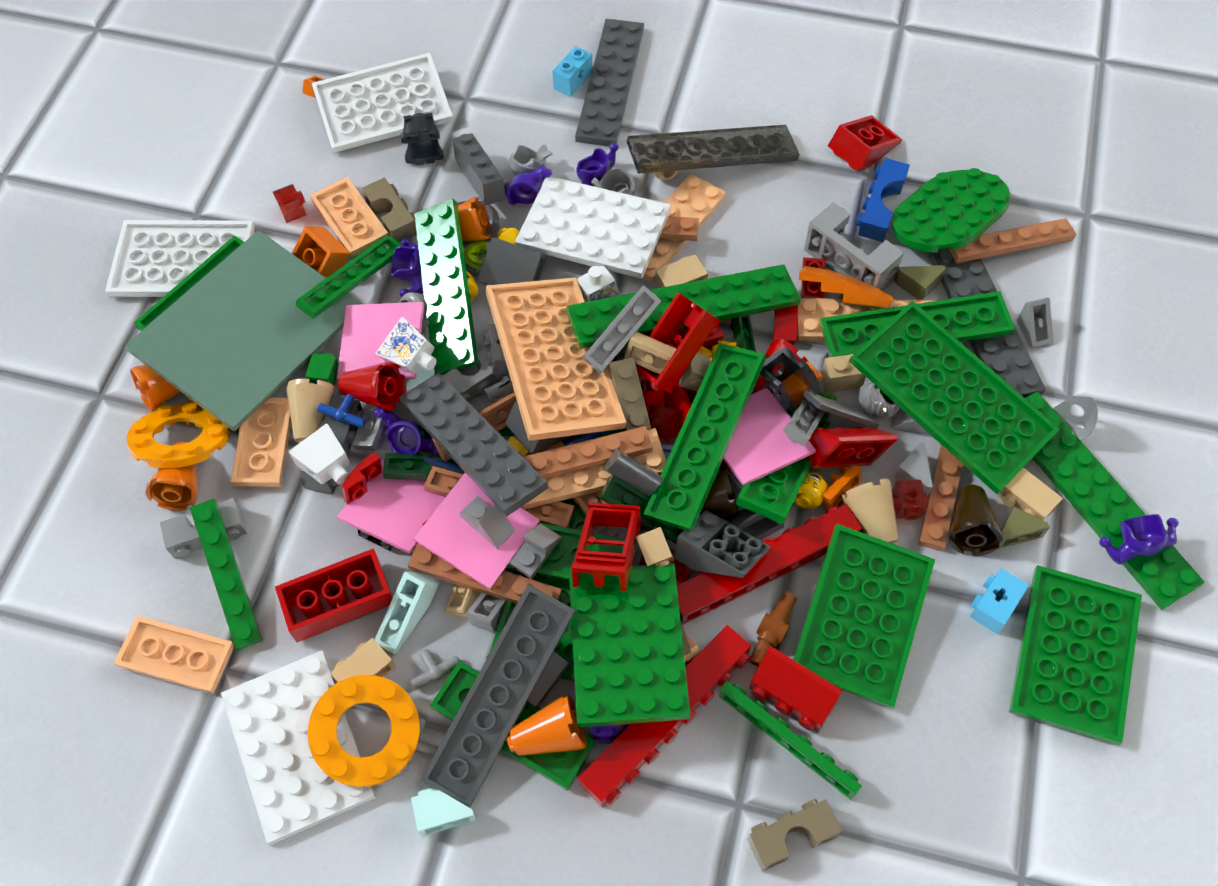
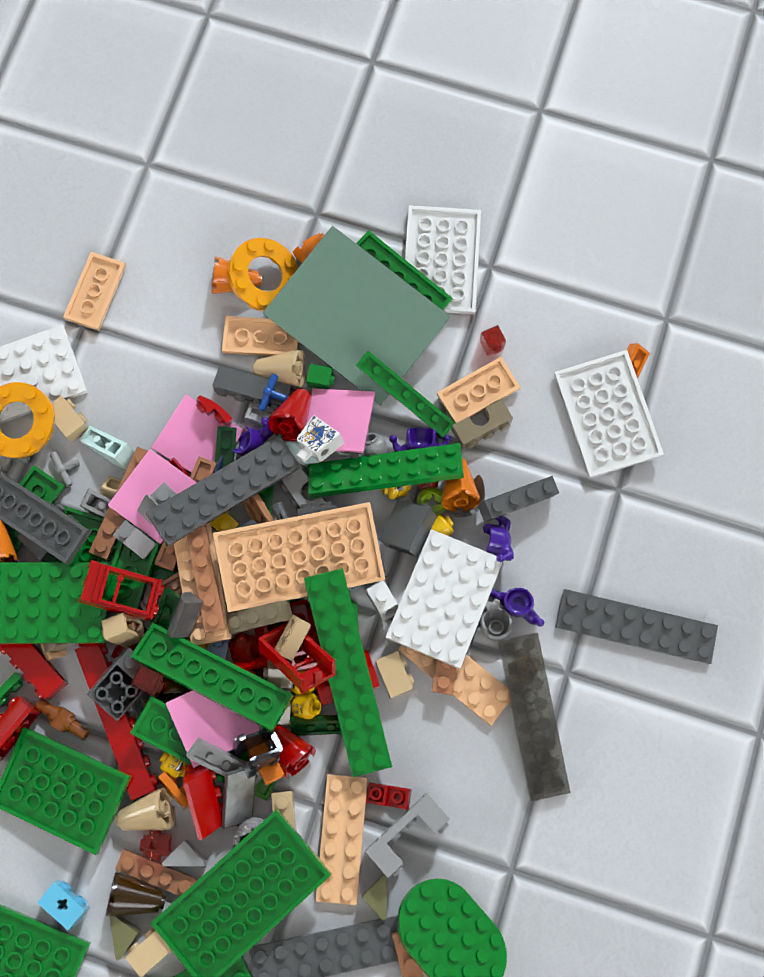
camera: 90 degrees right, 15 degrees up
(182, 538) = (193, 315): light grey arch -> none
(226, 574) = (148, 319): green plate -> none
(319, 590) = (116, 406): red brick -> none
(320, 250) = (436, 368): orange slope -> none
(321, 456) = (229, 380): white torso -> none
(422, 139) = (560, 448): black piece -> none
(527, 160) = (531, 544): light grey hat -> none
(572, 71) = (643, 589): medium azure brick -> none
(621, 329) = (311, 612): light grey plate -> none
(718, 500) = (148, 681): none -> clear red brick
(786, 324) = (336, 763): red slope -> none
(853, 290) = (368, 822): orange slope -> none
(863, 142) = (546, 870): red slope -> none
(877, 217) = (449, 864): blue arch -> none
(963, 317) = (325, 907): green plate -> none

